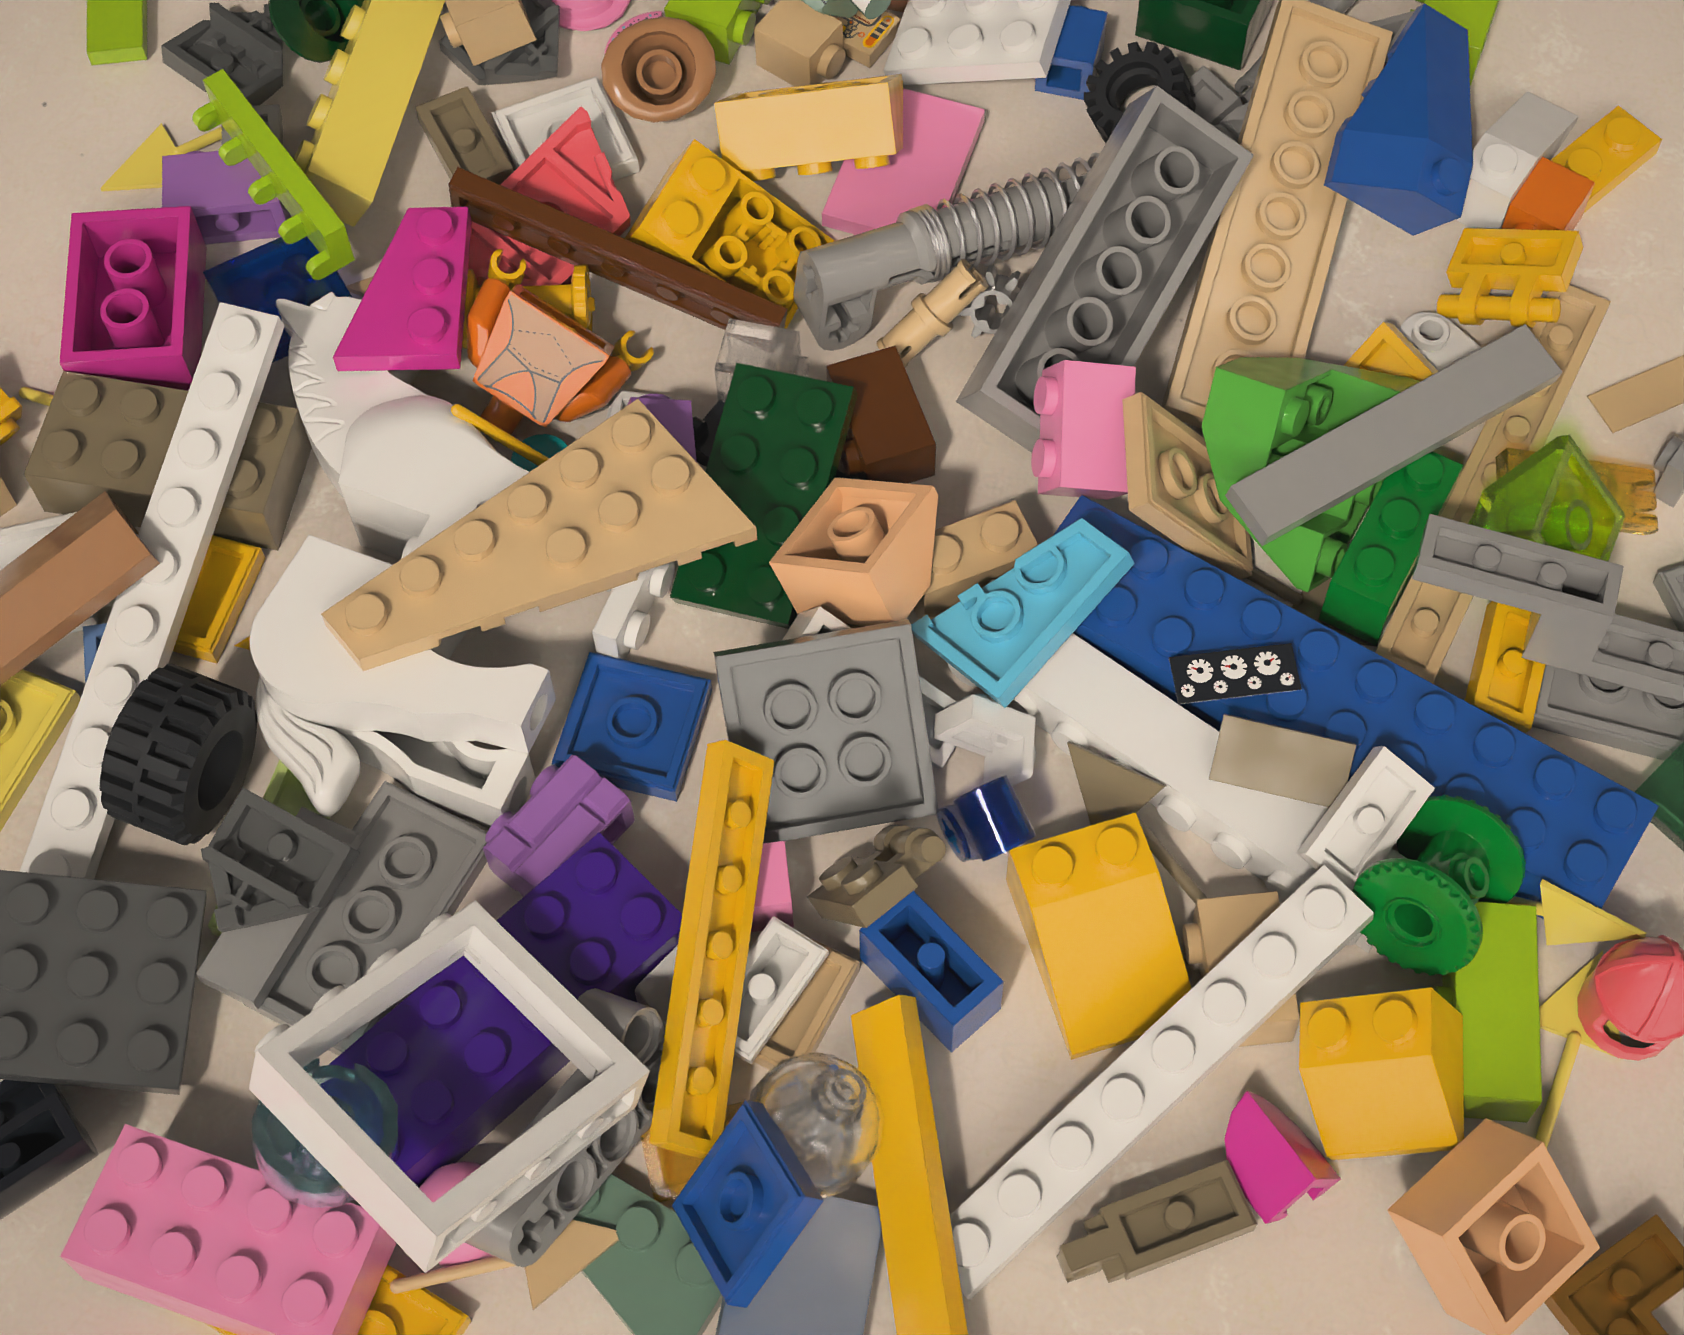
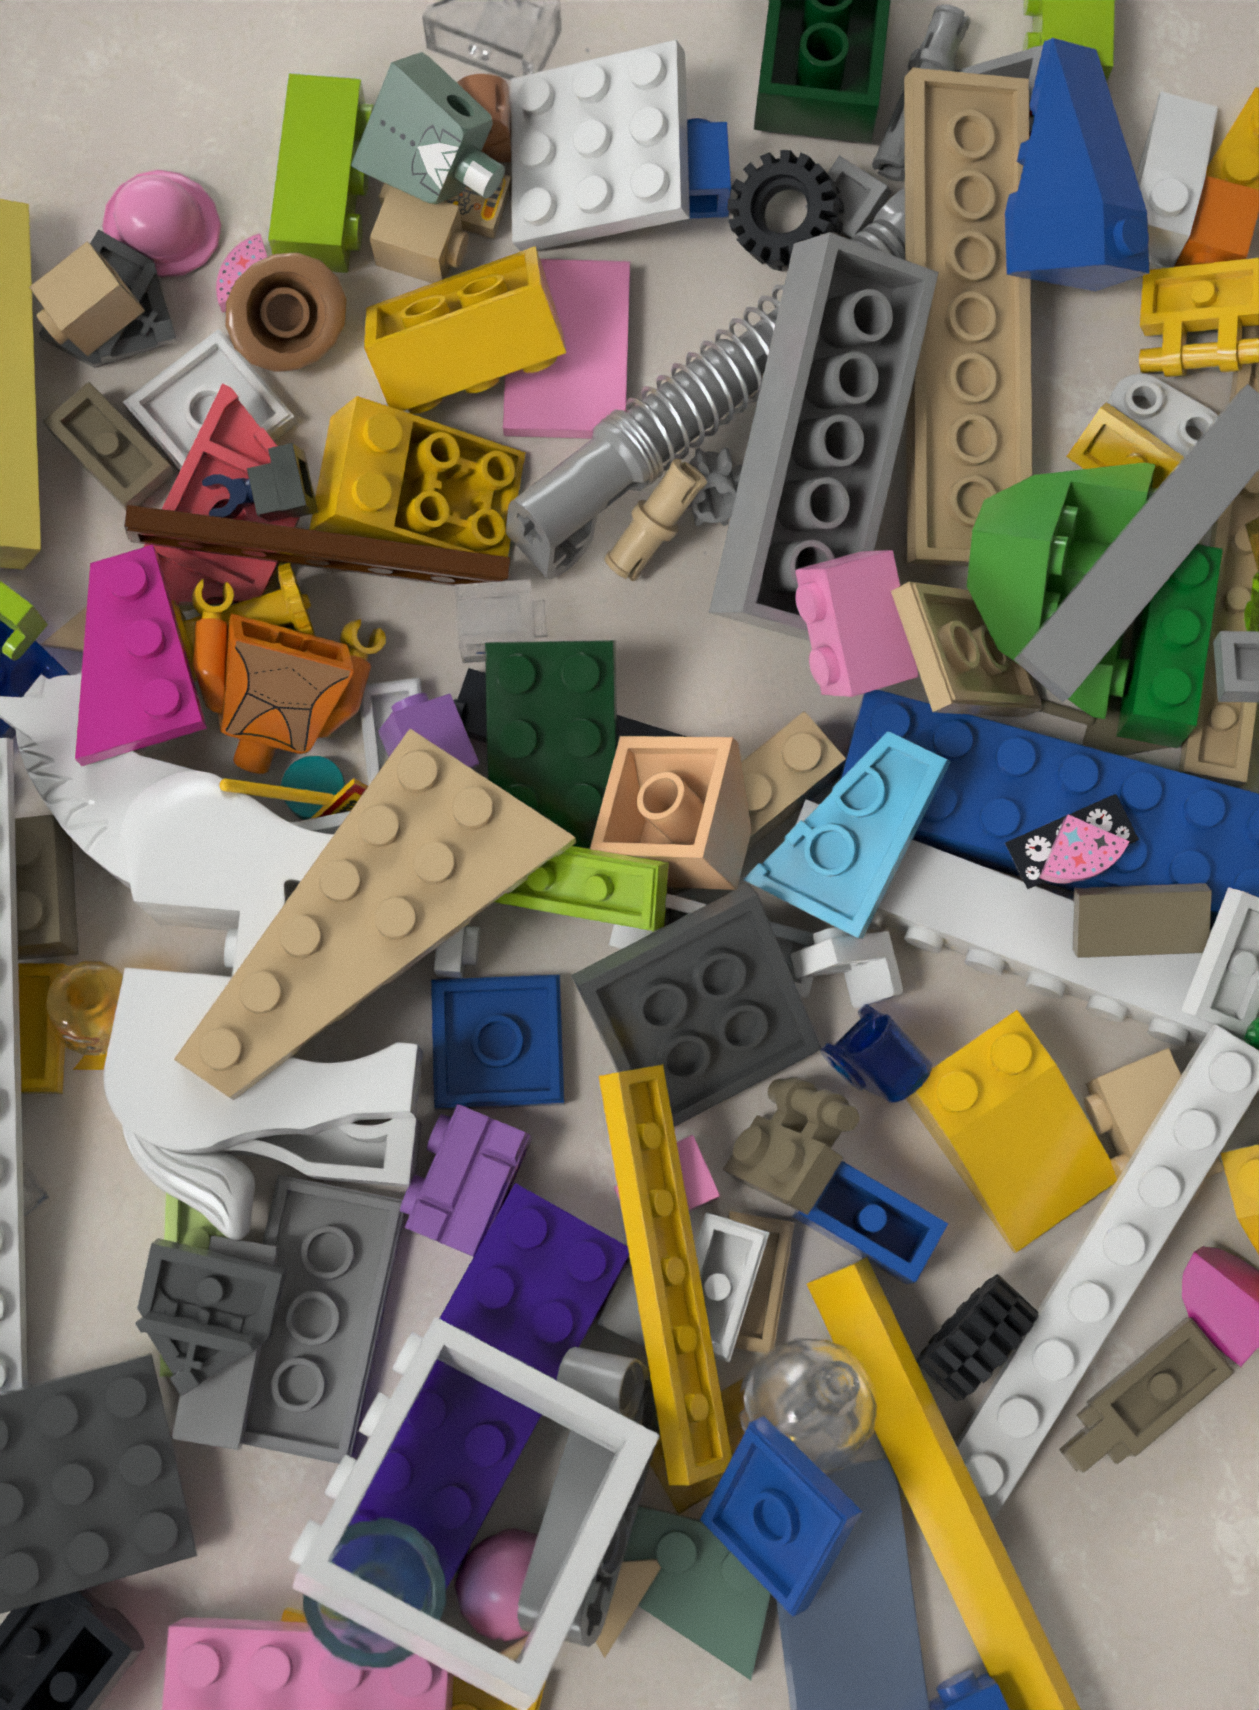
camera: 20 degrees left, 15 degrees up
(178, 754) = (73, 1227): black tyre -> none
(255, 572) = (84, 1006): none -> clear yellow head
(595, 196) = (275, 488): none -> pearl dark grey piece
(754, 586) = (597, 888): none -> lime tile
(888, 428) = (651, 655): reddish brown brick -> none
(1001, 1106) = (977, 1338): none -> black tyre
(1116, 791) = (987, 985): dark tan piece -> none
(1239, 679) = (1081, 852): none -> bright pink tile

